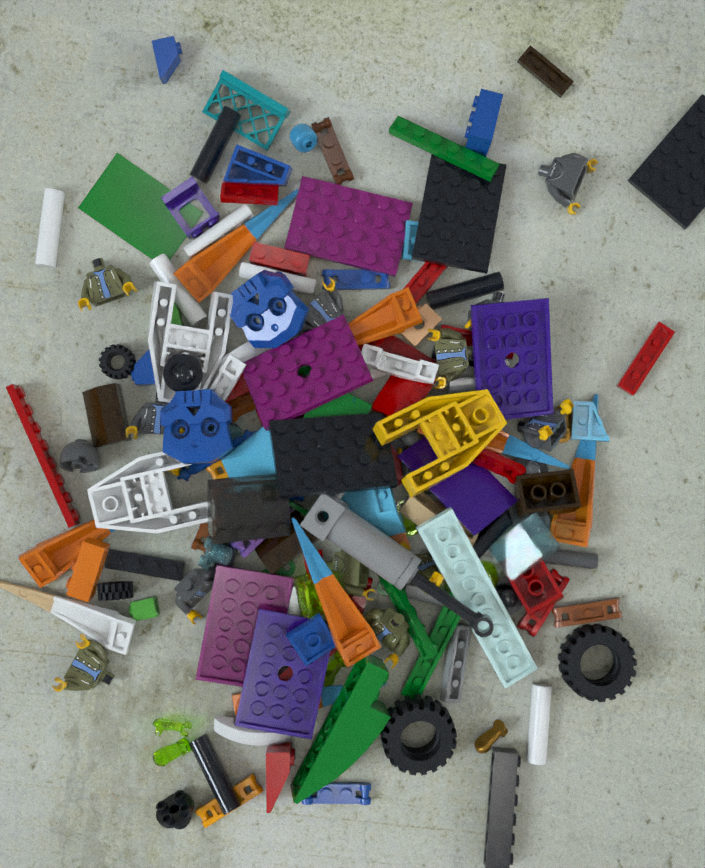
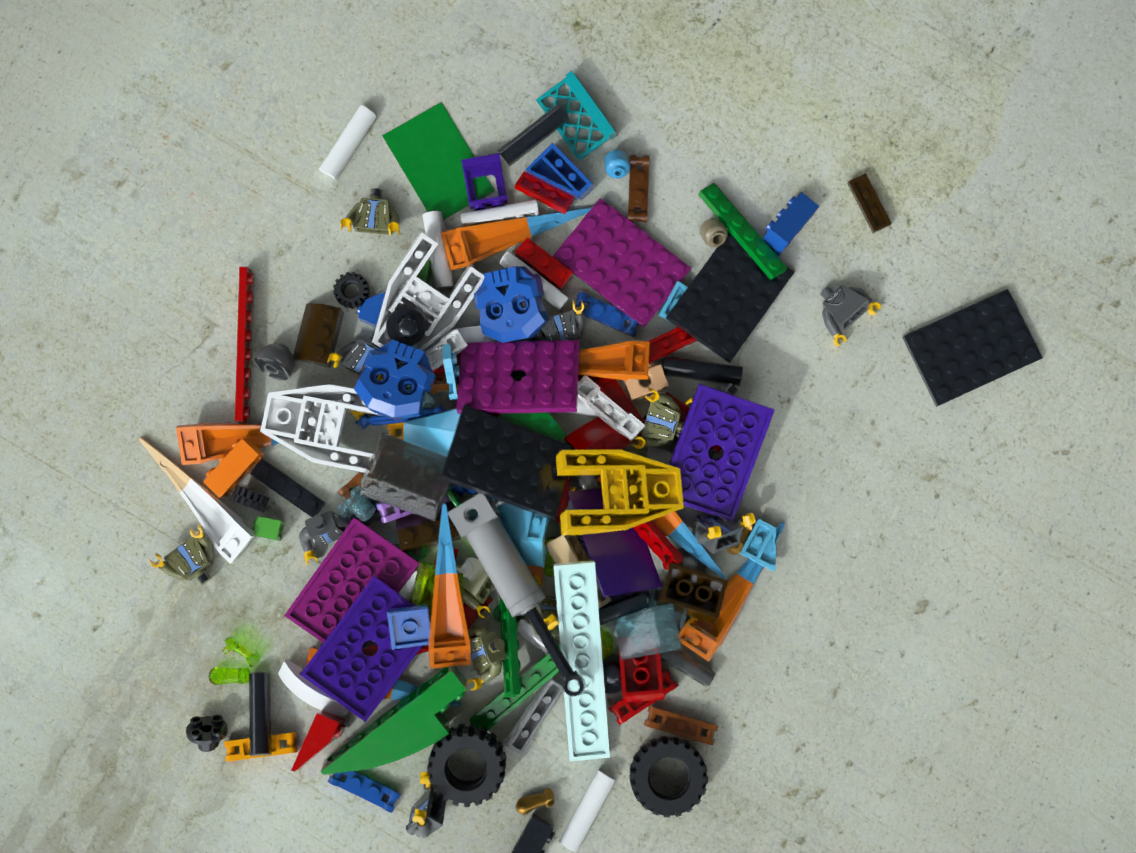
camera: 30 degrees right, 5 degrees down
(167, 56) = (526, 37): blue slope -> none
(242, 394) = (452, 371): none -> medium azure wing
(332, 669) = (415, 667): clear neon green piece -> none
(401, 791) = (427, 812): none -> dark grey torso
(418, 161) = (713, 232): none -> dark tan head
(645, 358) = (844, 510): red plate -> none

